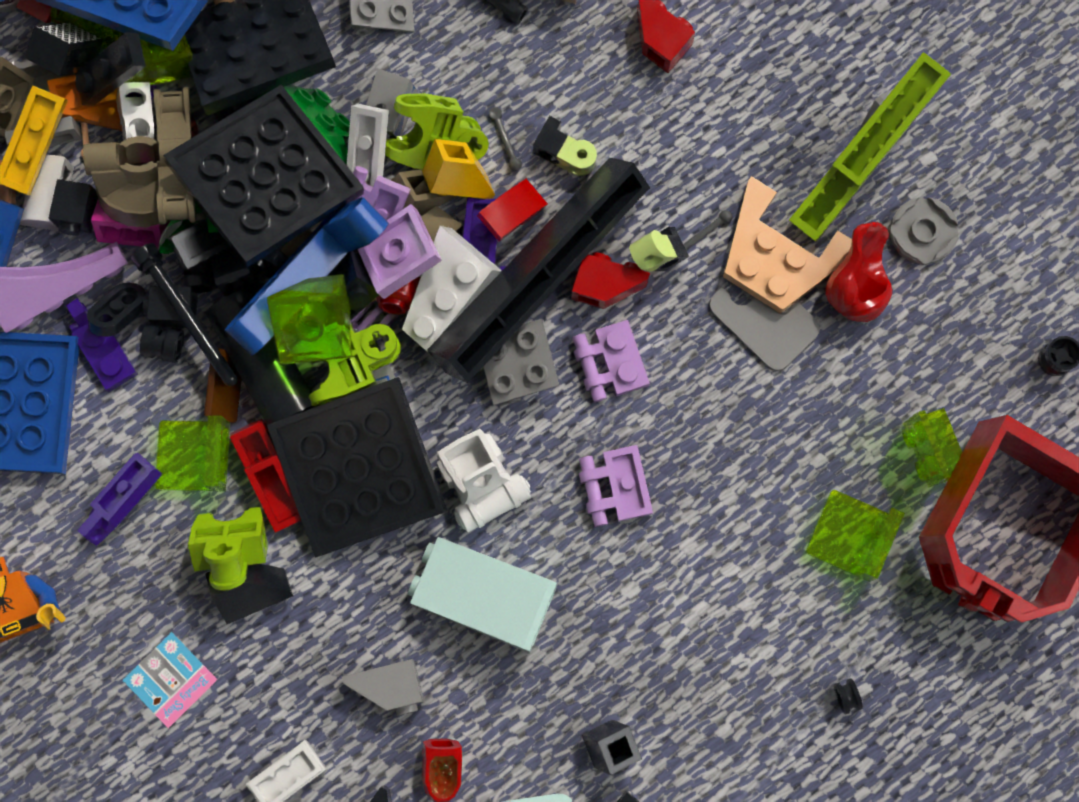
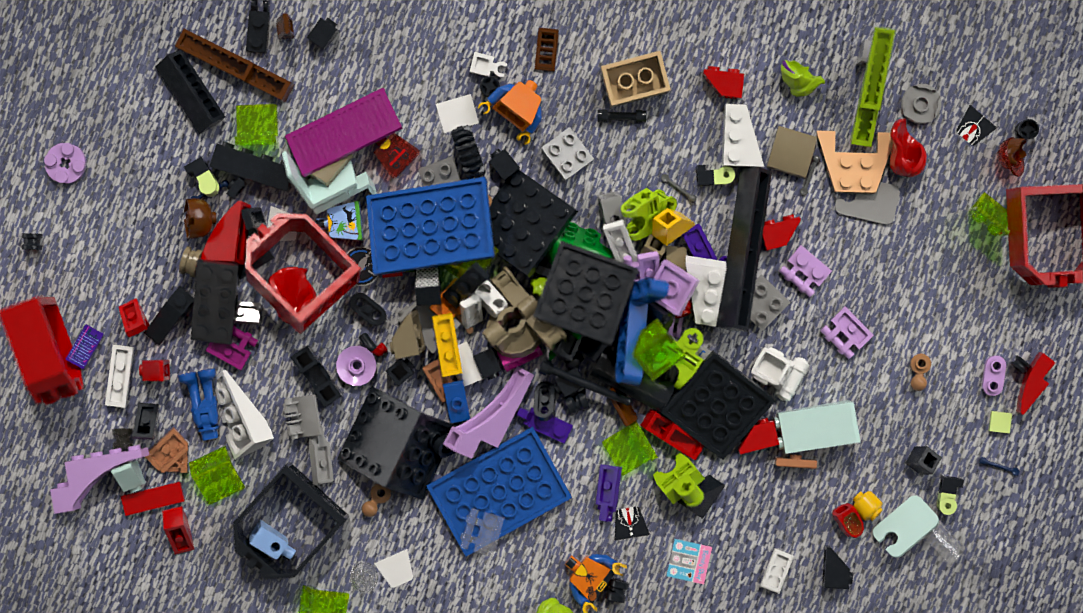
camera: 35 degrees left, 10 degrees up
(32, 652) = (617, 590): none -> black wheel
(99, 116) = (471, 311): none -> white plate
(122, 568) = (629, 524): none -> black sticker
(389, 686) = (798, 498): light grey slope -> none
(390, 556) = (759, 437): none -> red slope
(420, 627) = (795, 461): none -> nougat plate
(484, 764) = (868, 505): none -> yellow head
(512, 209) = (709, 225): red slope -> none
(631, 116) = (739, 139): none -> white wedge
(658, 250) = (796, 201): yellowish green leg -> none
(678, 625) = (919, 382): none -> medium nougat plate
(696, 184) = (791, 152): none -> dark tan slope
(765, 765) = (1000, 422): none -> yellowish green tile
(769, 89) = (799, 78): none -> lime hair
(797, 687) = (991, 375): none -> lavender plate
(853, 735) = (1033, 382): none -> red slope
(854, 535) = (978, 284): clear neon green bracket -> none
(984, 310) = (974, 126): none -> black sticker
(1016, 378) = (1011, 155): none -> clear red piece

